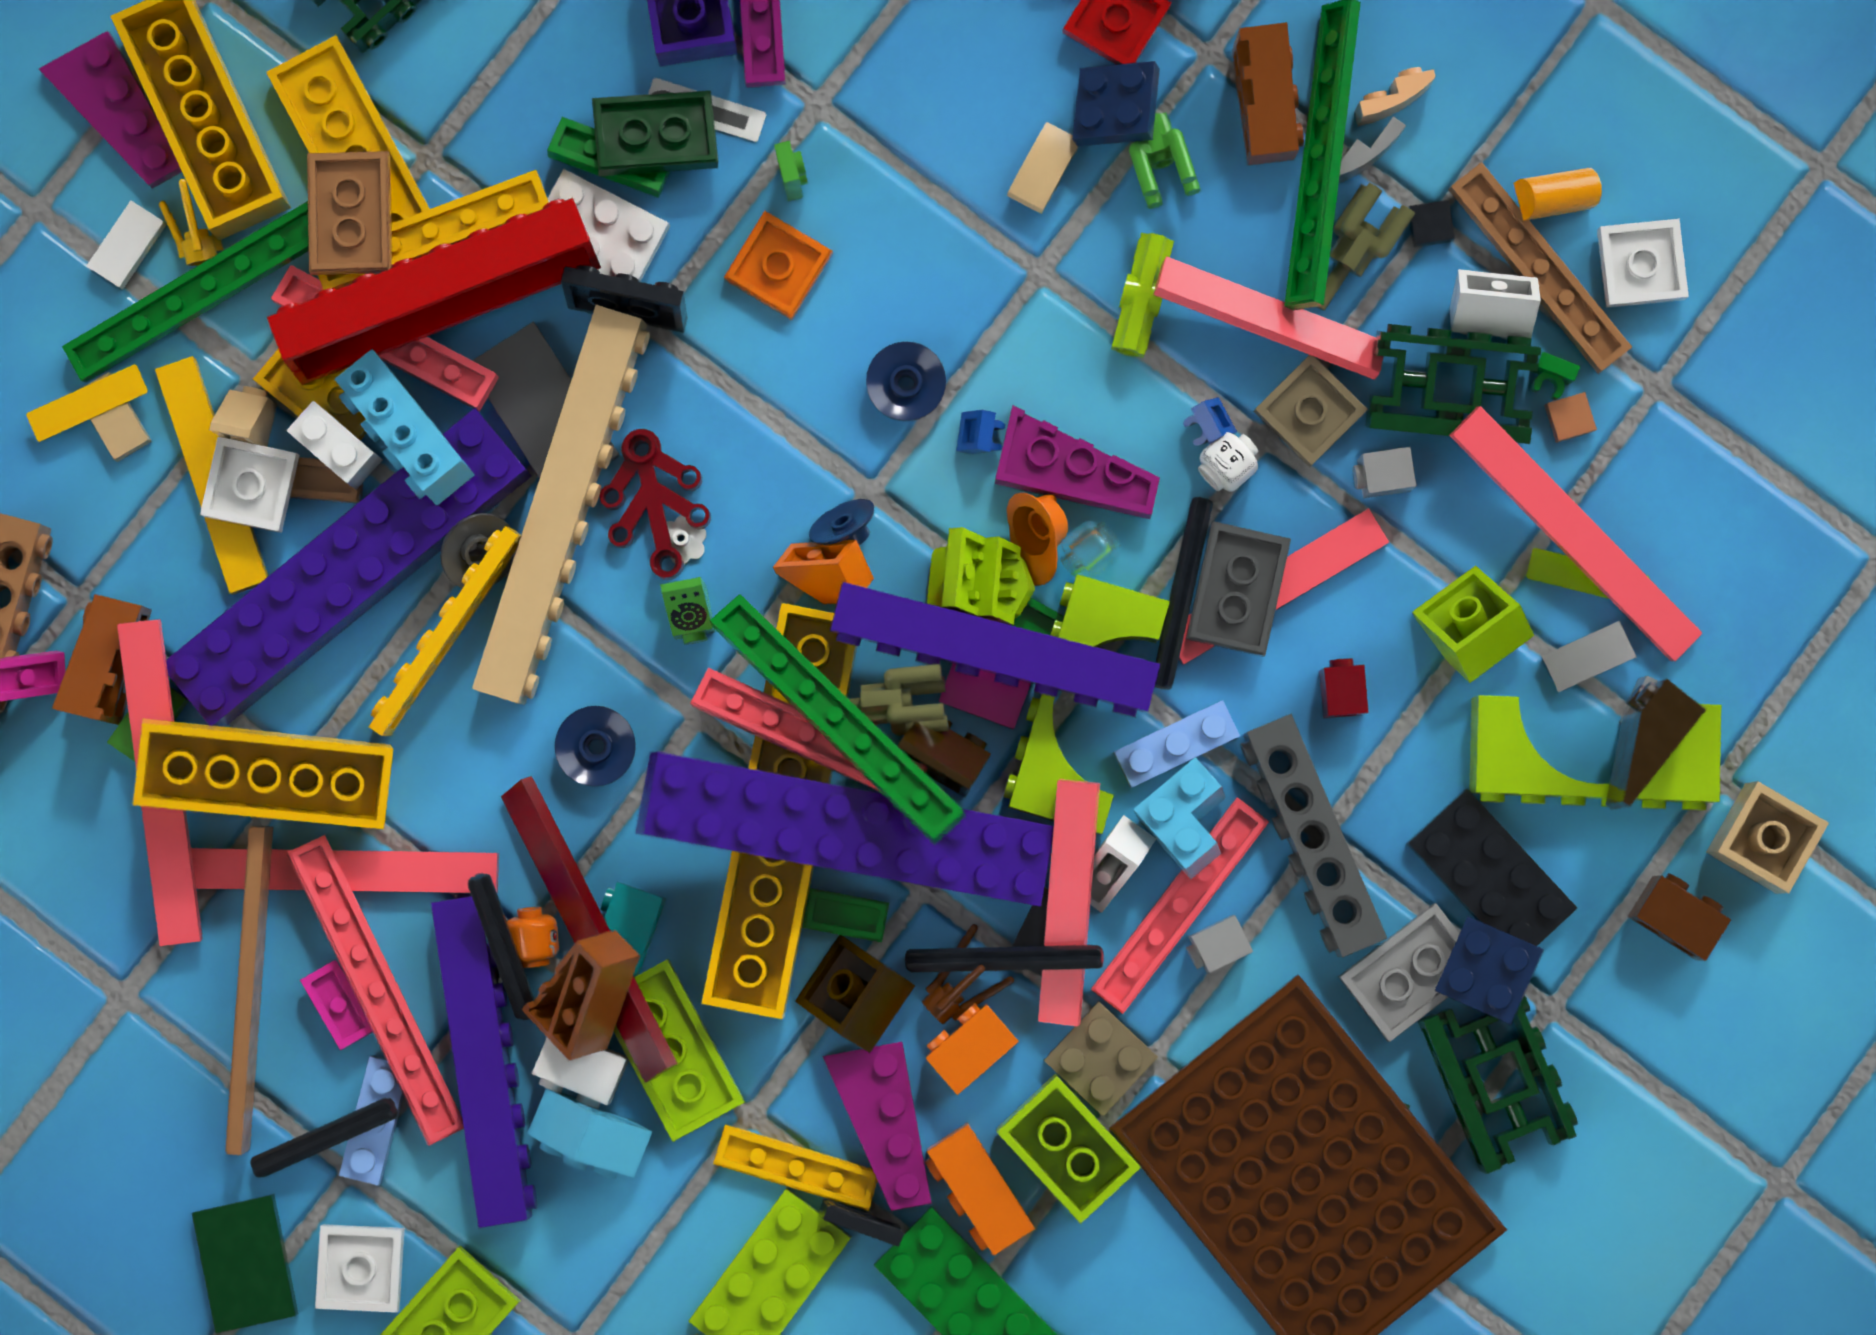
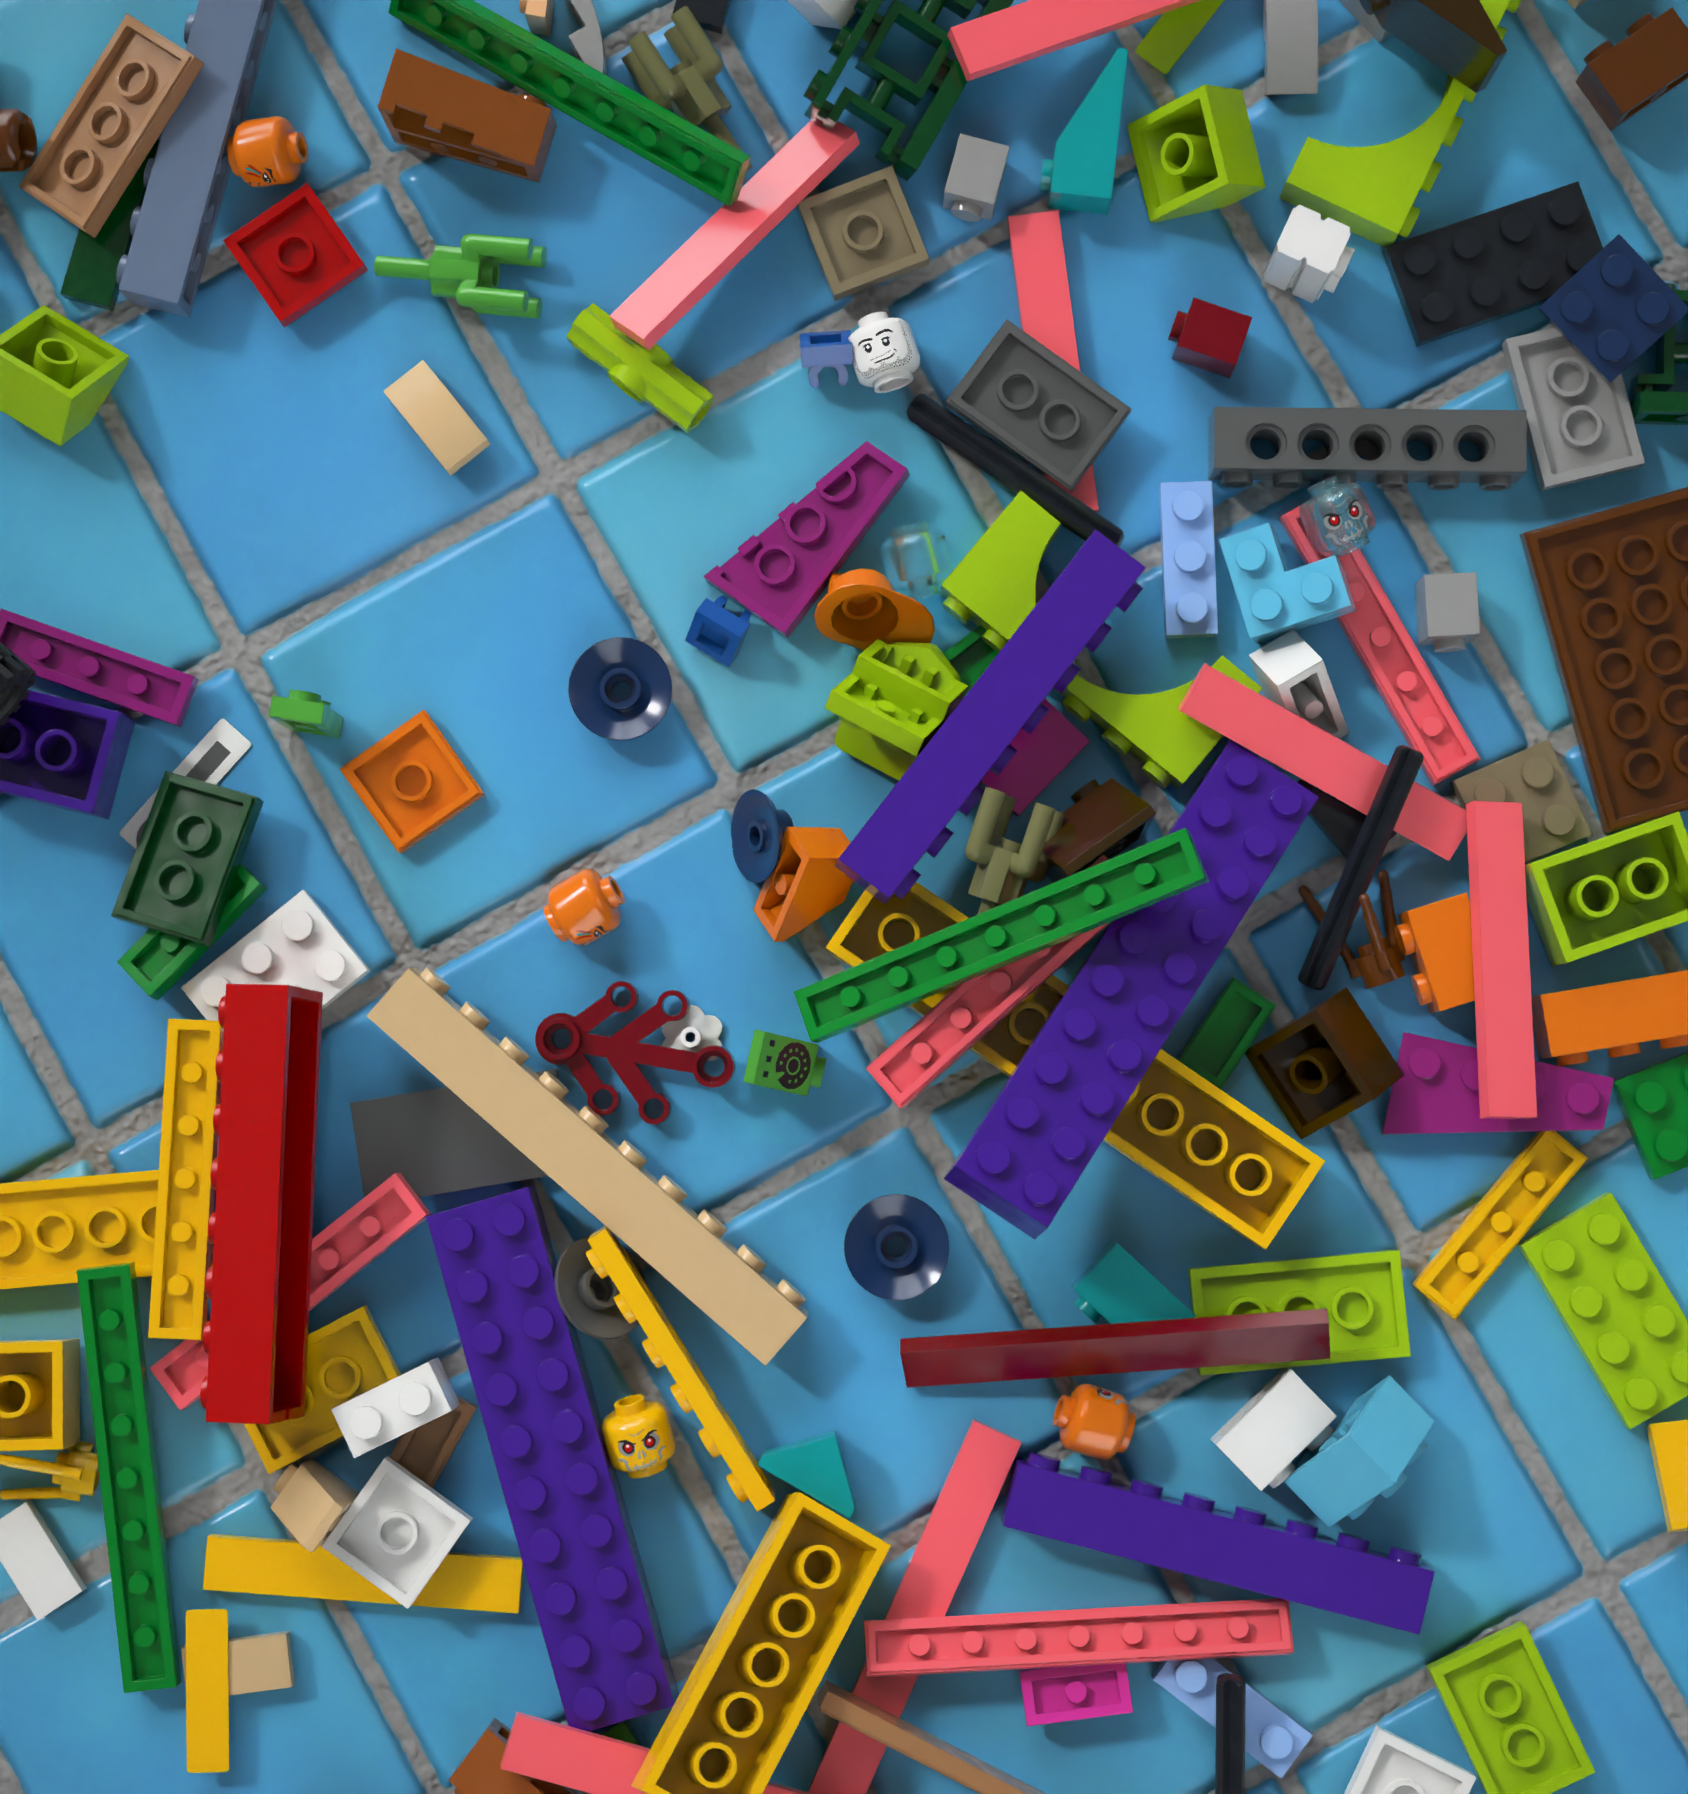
camera: 60 degrees left, 0 degrees up
(349, 213) = (119, 1267): medium nougat tile -> none
(386, 623) = (638, 1436): none -> yellow head
(403, 427) = (414, 1312): medium azure brick -> none
(415, 756) = (815, 1468): none -> teal slope
(501, 943) = (1093, 1460): black axle -> none
(585, 995) = (1199, 1385): dark orange wedge -> none
(656, 304) = (397, 944): black plate -> none
(740, 423) = (584, 907): none -> orange head
(861, 1222) = (1600, 1172): black tile -> none
(979, 1085) = (1501, 960): none -> coral tile
(1116, 104) = (399, 297): dark blue plate -> none
(1249, 835) = (1337, 517): none -> clear light blue head
(1431, 733) = (1309, 255): none -> white brick
(1443, 543) = (1086, 151): none -> teal slope

